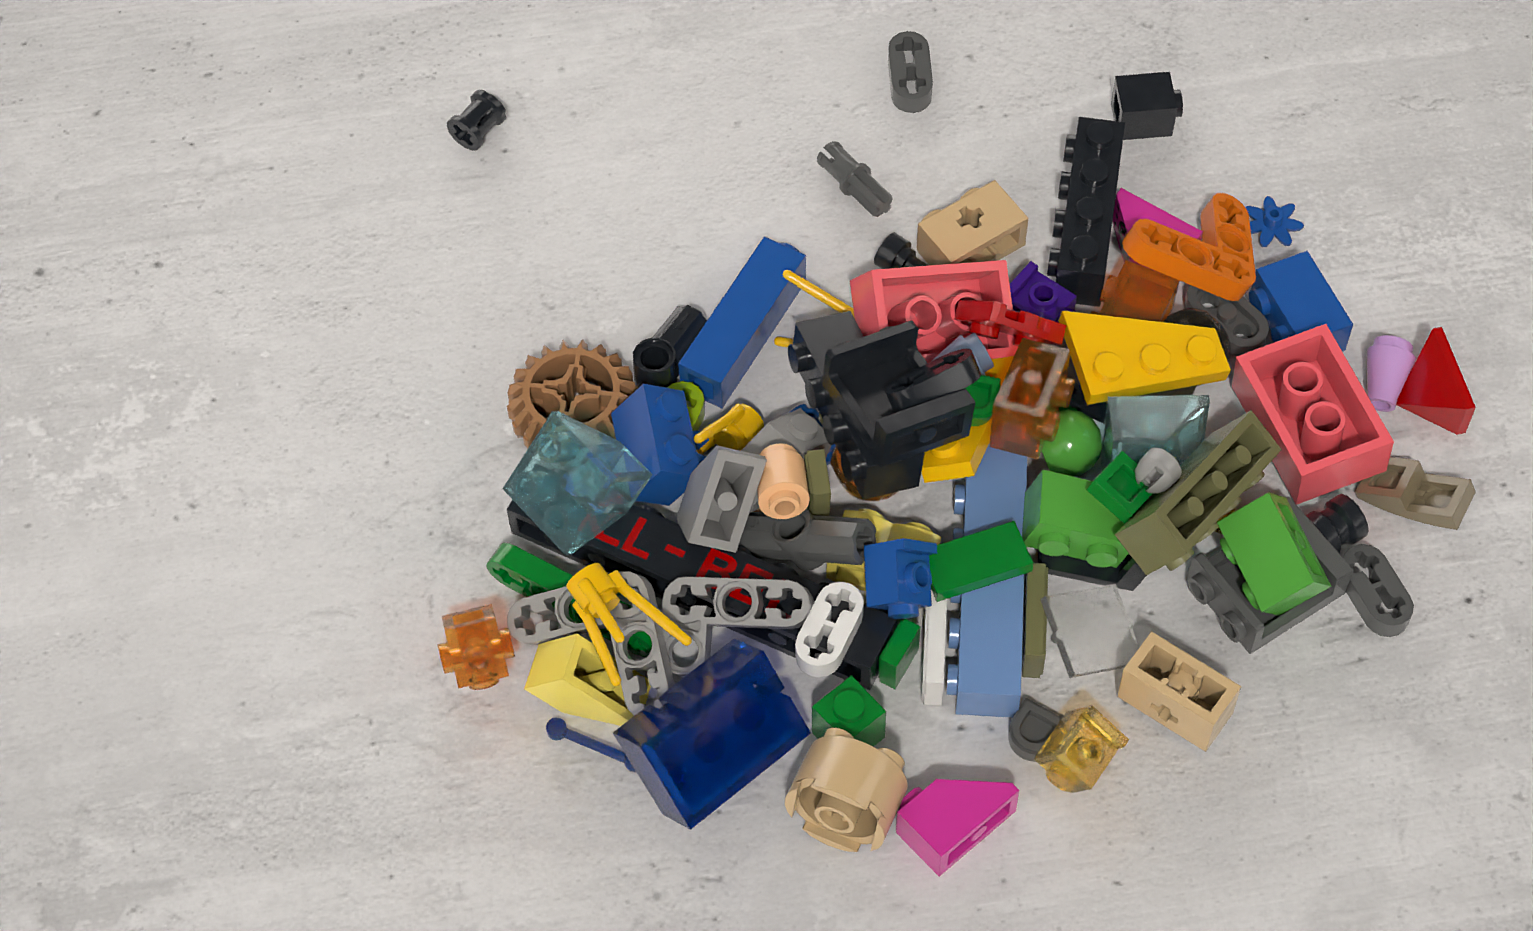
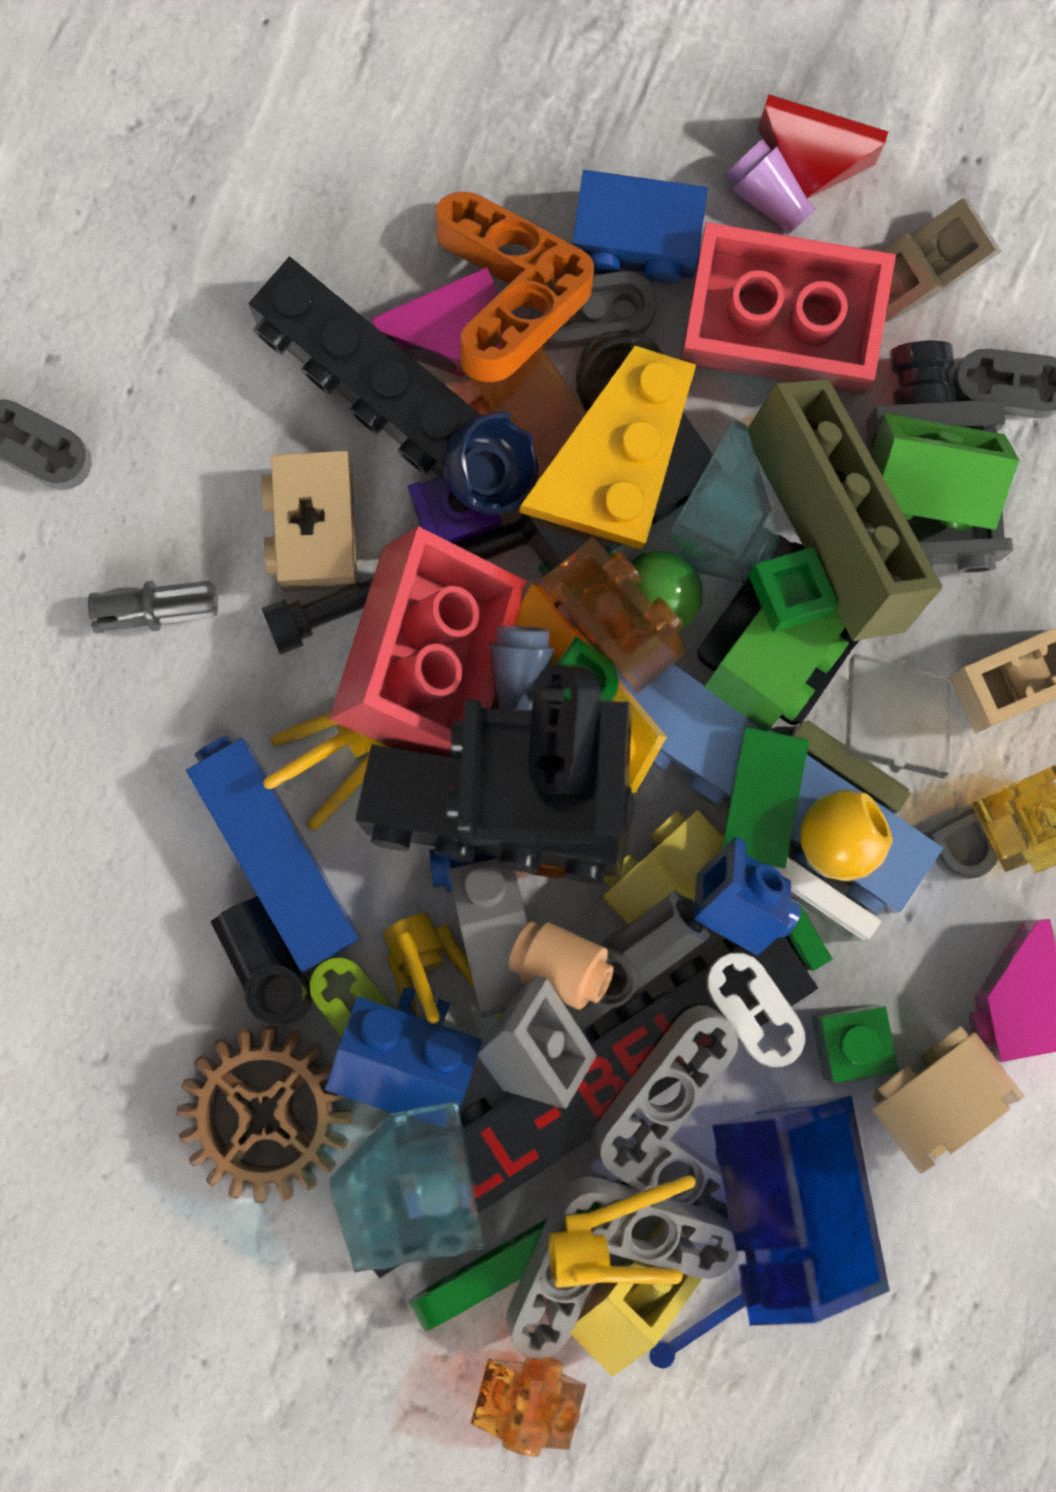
camera: 65 degrees left, 25 degrees up
(818, 483) = (574, 918): olive tile -> none
(984, 611) = (845, 835): none -> yellow piece
(992, 317) = (511, 580): red wing -> none
(1078, 282) = (490, 464): none -> dark blue hair
(1146, 104) = (260, 208): black brick -> none
(1157, 470) = (812, 548): light grey hinge -> none
(1273, 221) = (496, 181): blue plant -> none

